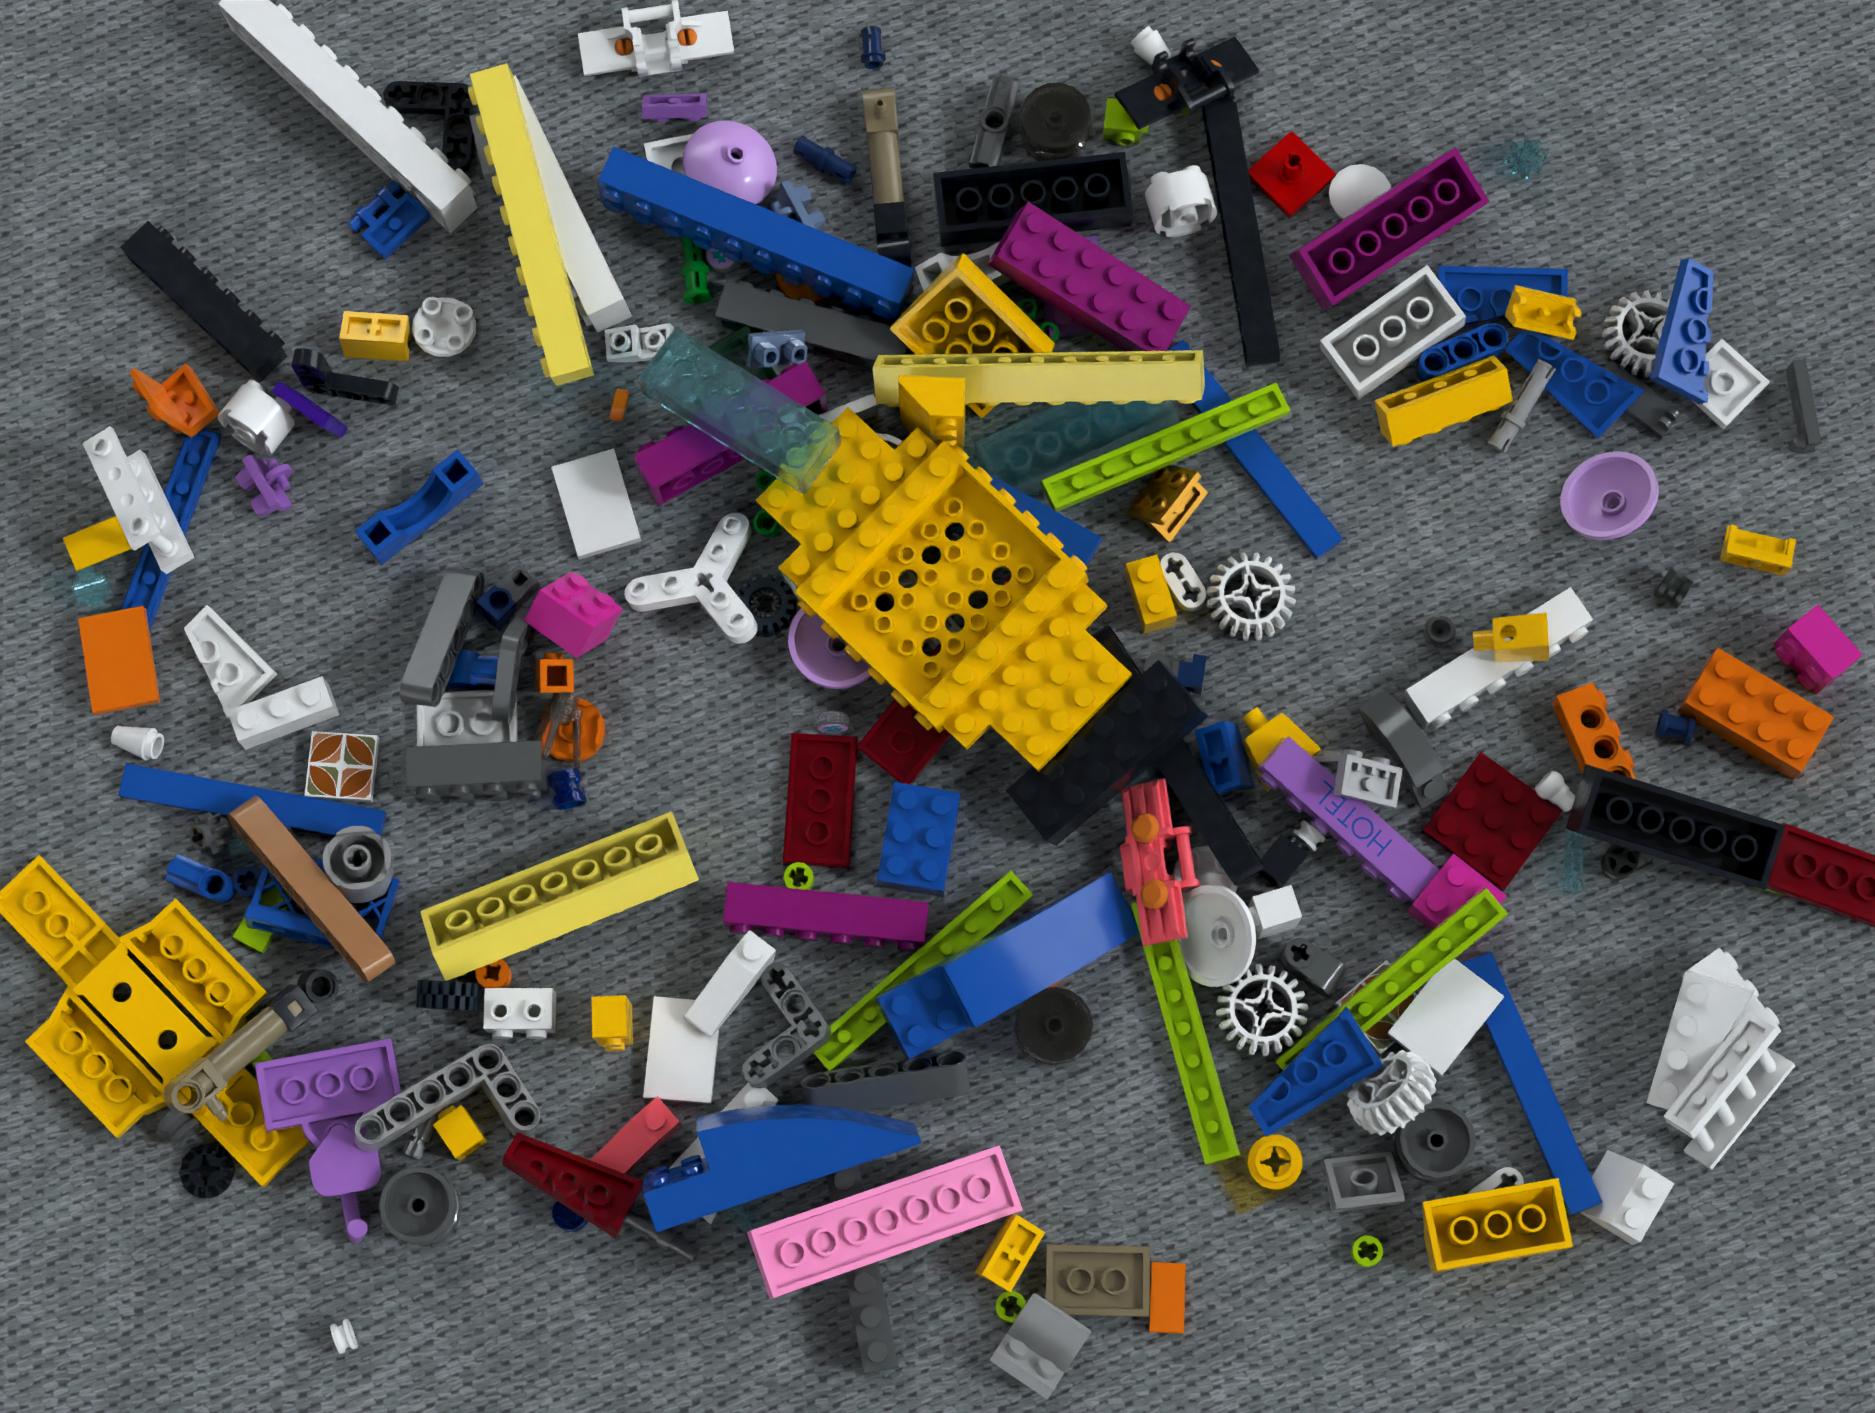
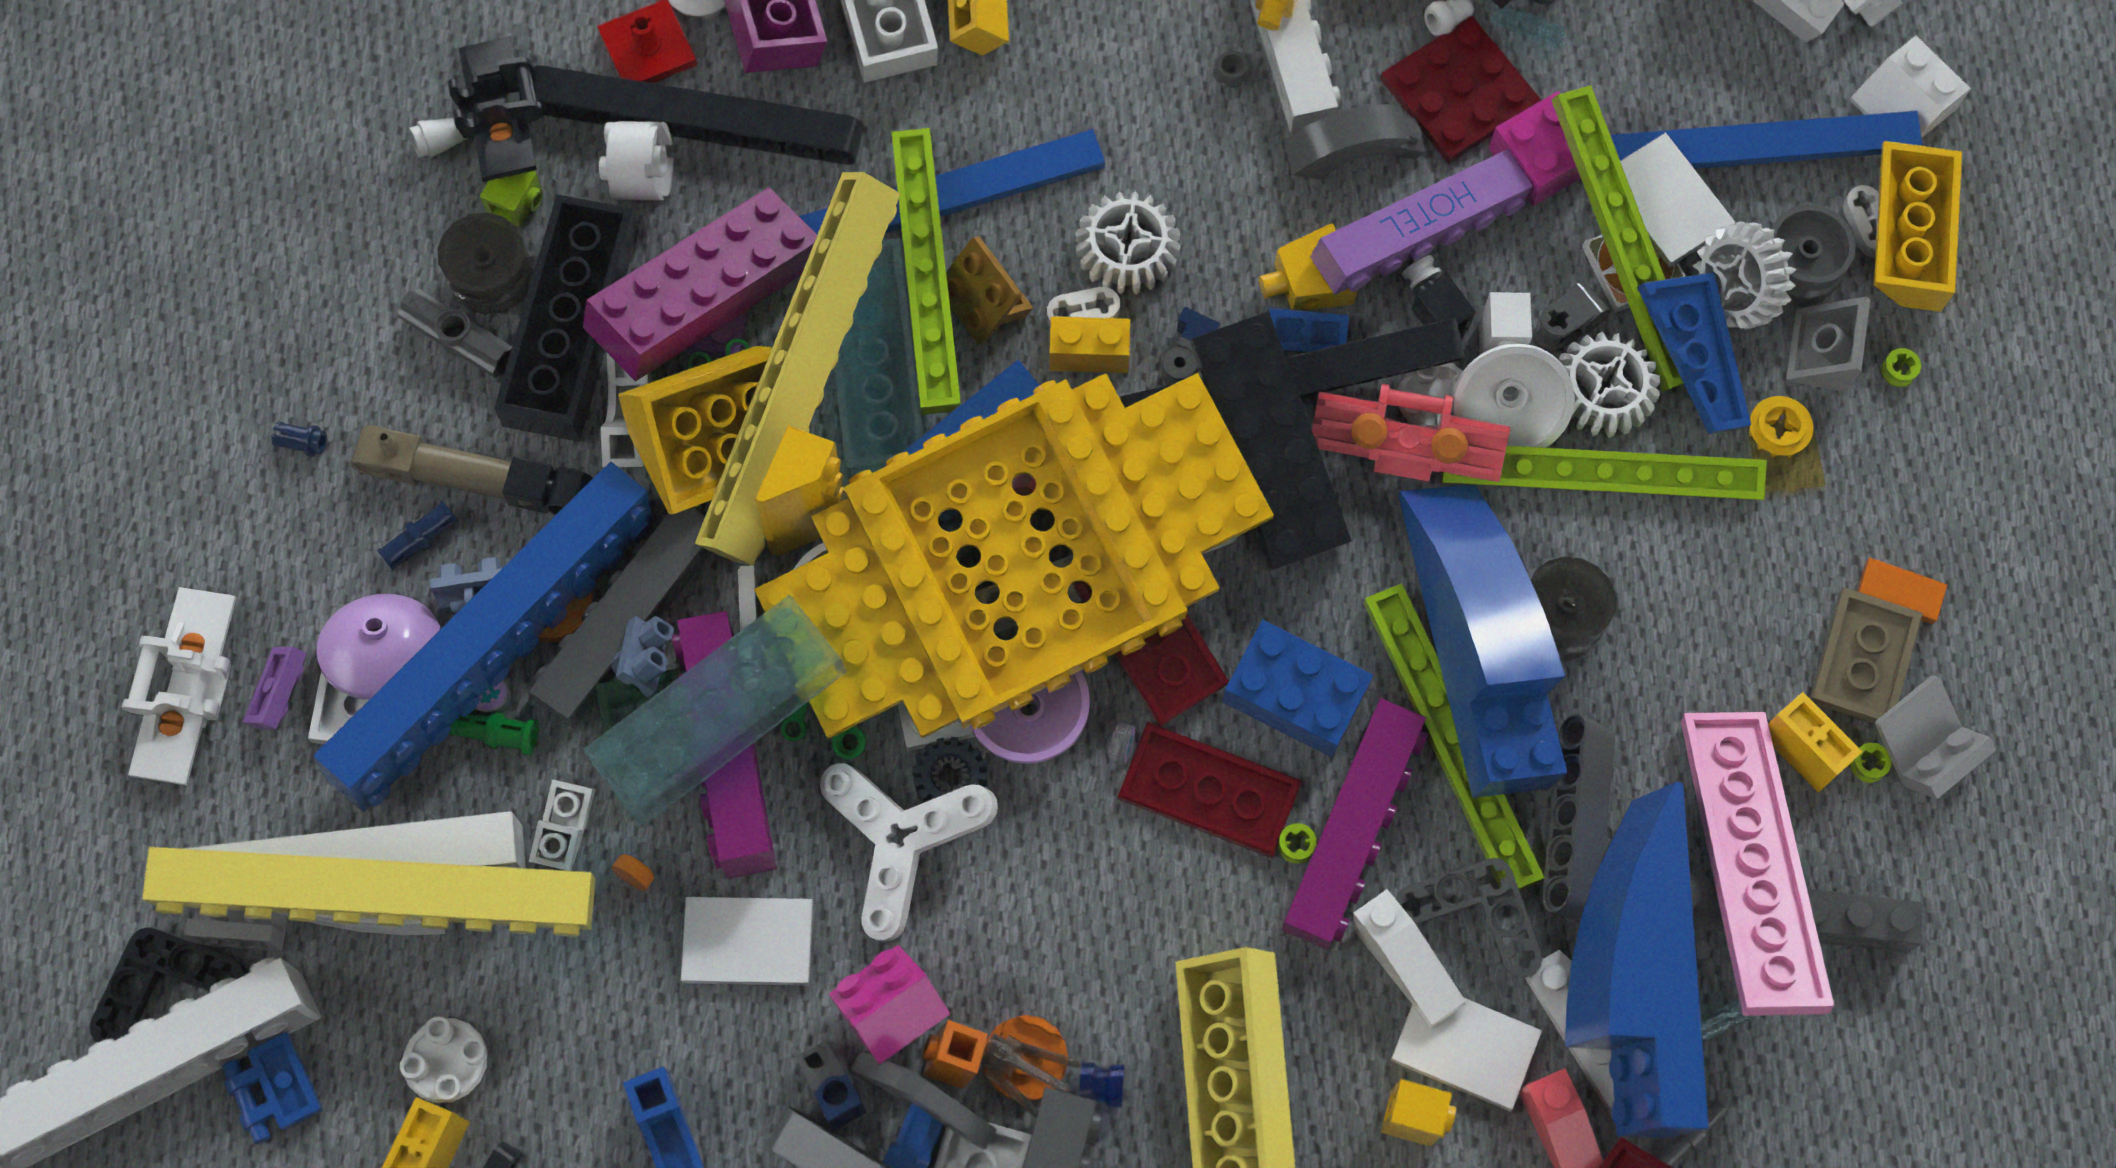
camera: 75 degrees left, 5 degrees down
(1363, 779) = (1389, 179): light grey bracket -> none

